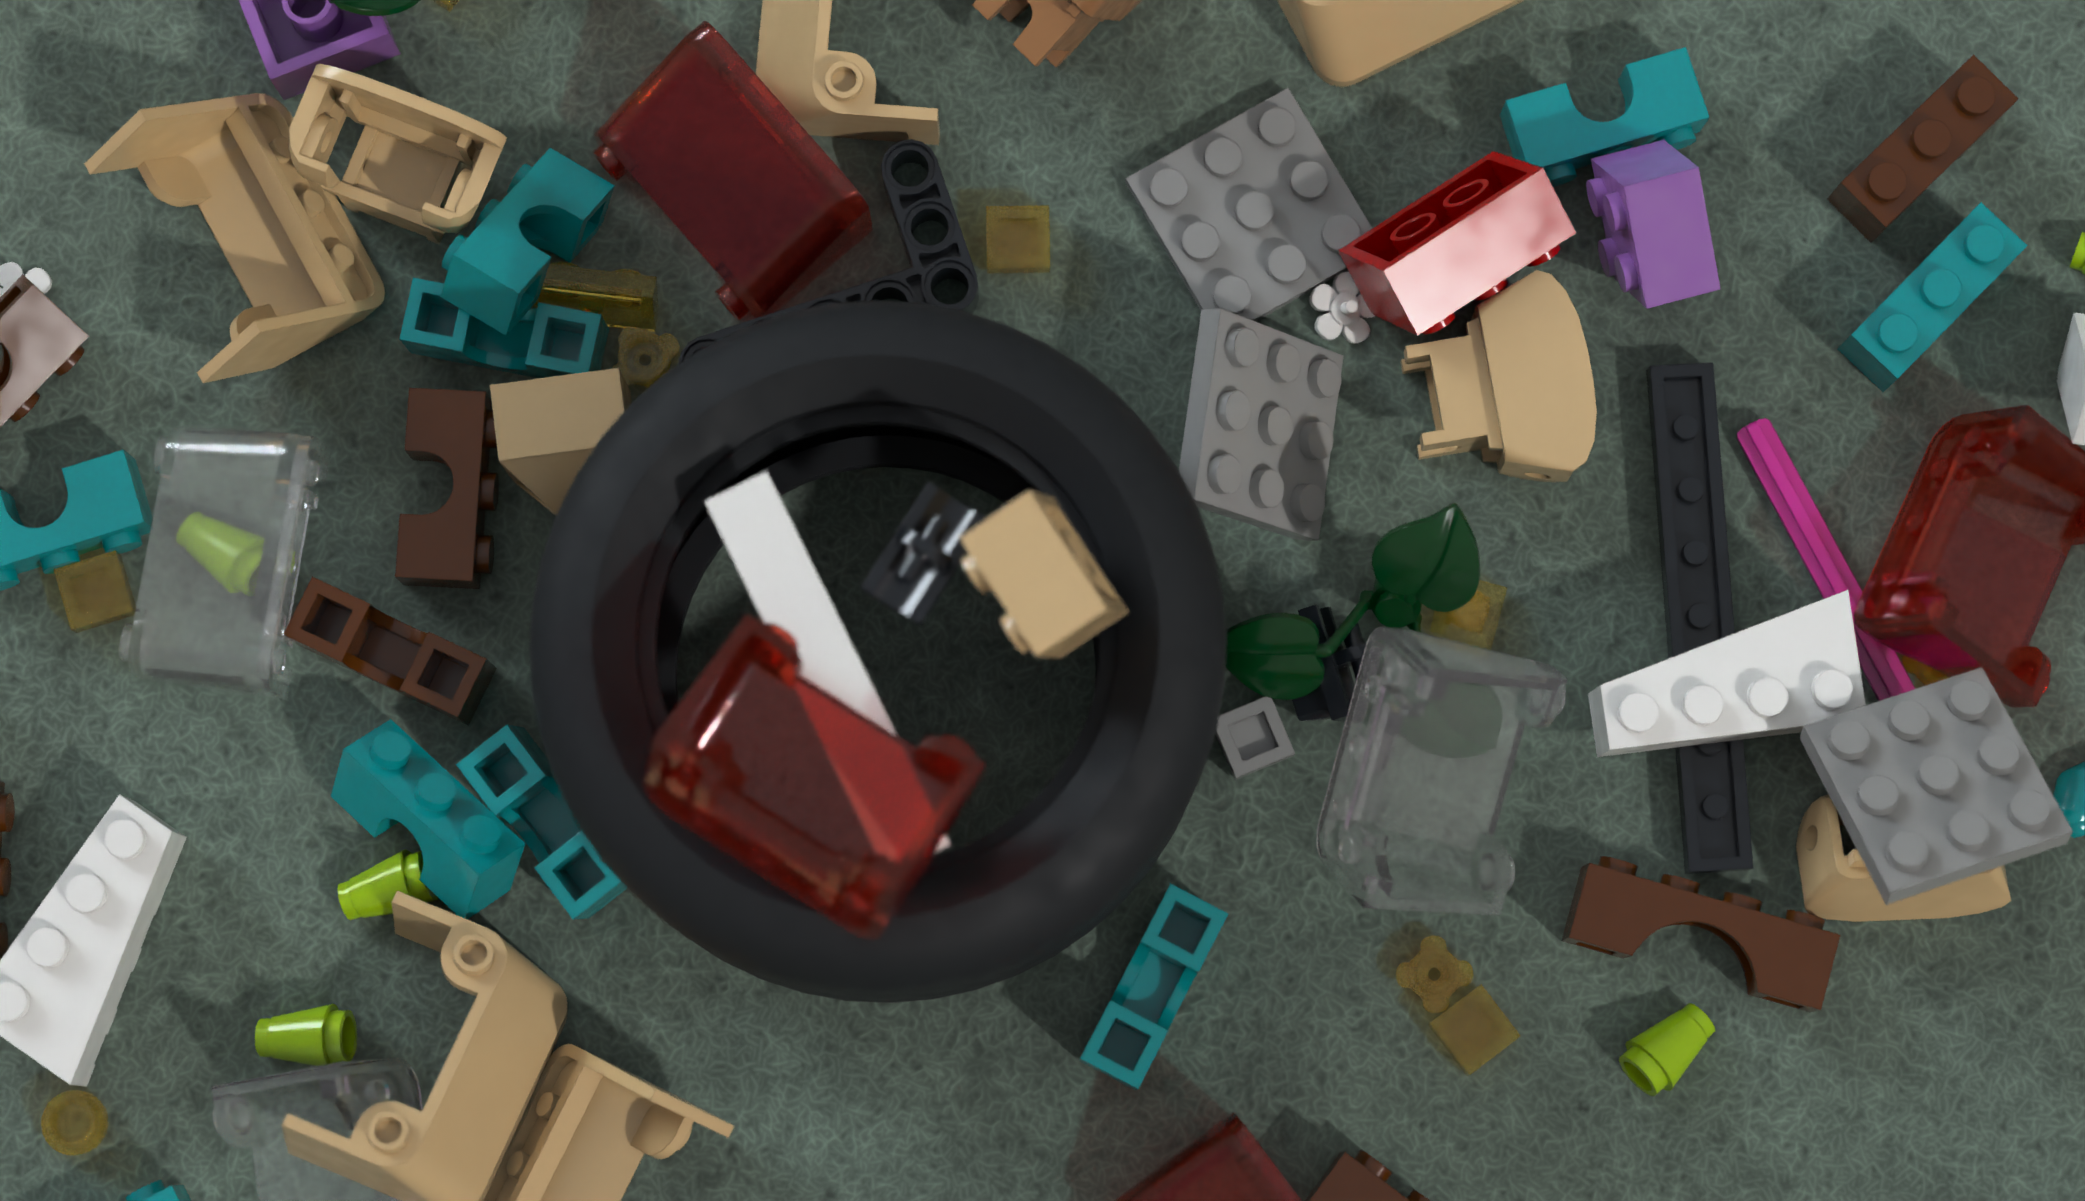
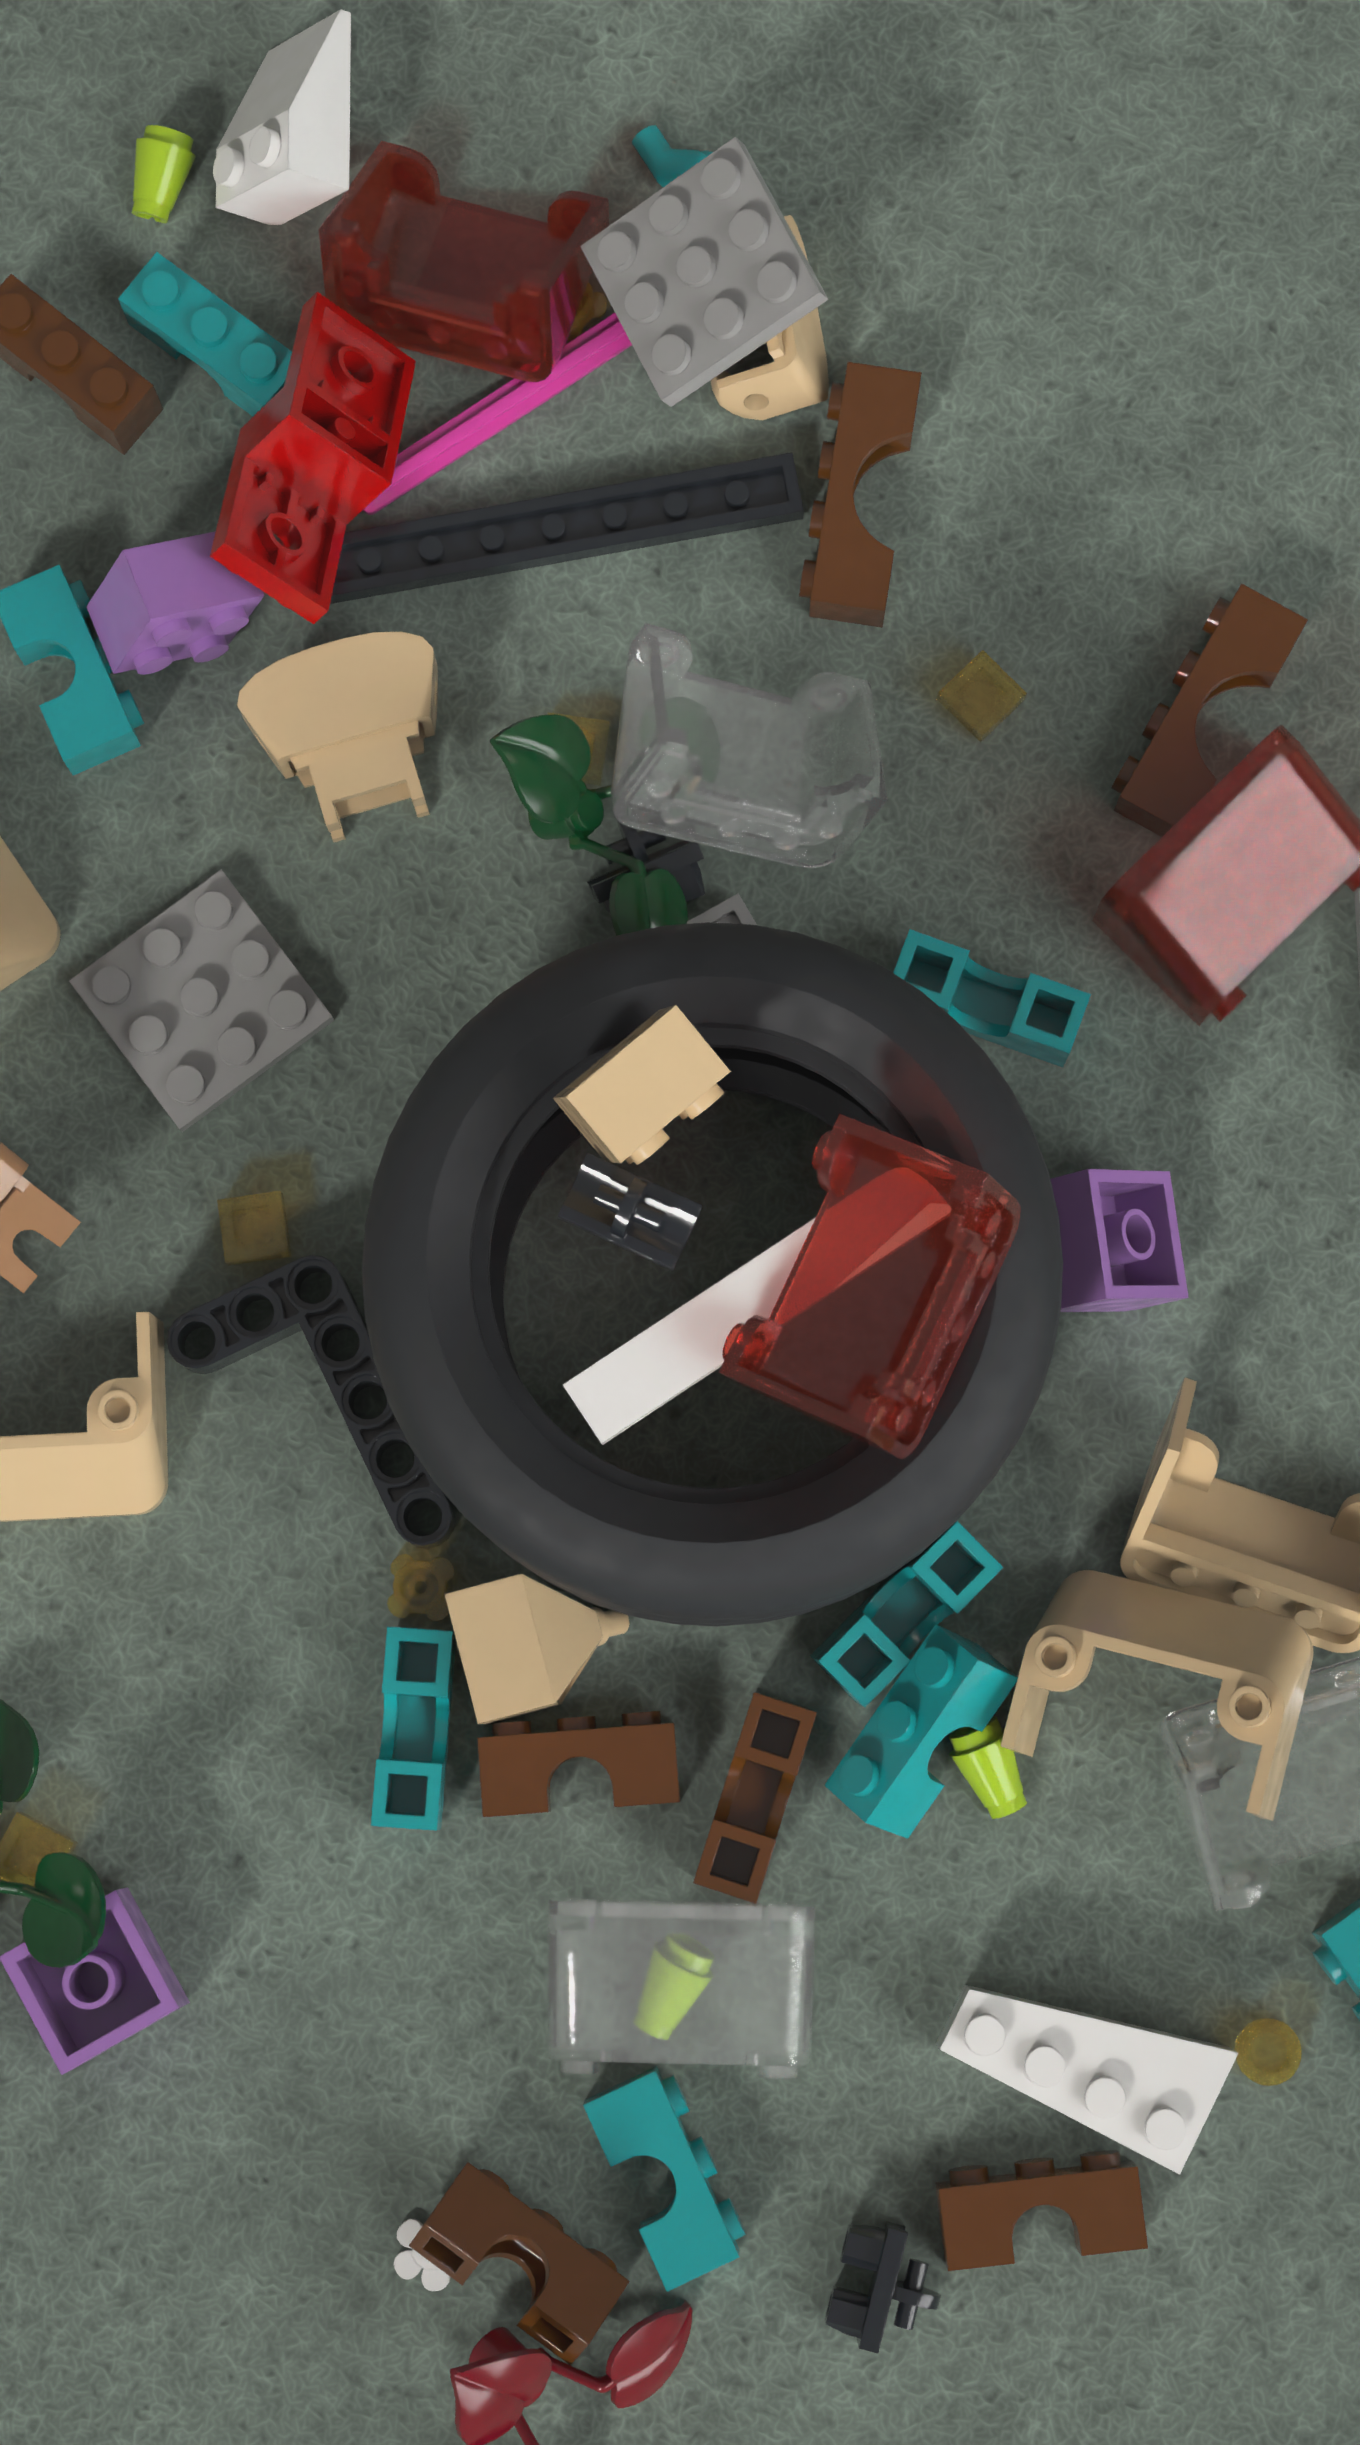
camera: 90 degrees left, 0 degrees up
(95, 591) = (729, 2116): clear yellow plate -> none
(272, 224) = (319, 1996): tan windscreen -> none
(308, 1036) = (1149, 1825): lime cone -> none
(412, 162) = (244, 1859): tan piece -> none
(499, 265) = (352, 1734): teal arch -> none
(620, 295) = (361, 1626): clear yellow plate -> none
(734, 174) = (219, 1519): clear red windscreen -> none
(885, 1073) = (1118, 1240): none -> medium lavender brick
(1260, 425) = (418, 956): light grey plate -> none
(1342, 310) = (287, 902): white plant -> none
(1453, 973) = (933, 757): clear yellow plate -> none
(1458, 243) = (214, 789): brick -> none
(1666, 1049) = (975, 516): lime cone -> none
(1737, 687) = (617, 461): white wedge -> none
(1788, 376) = (314, 459): none -> red bracket

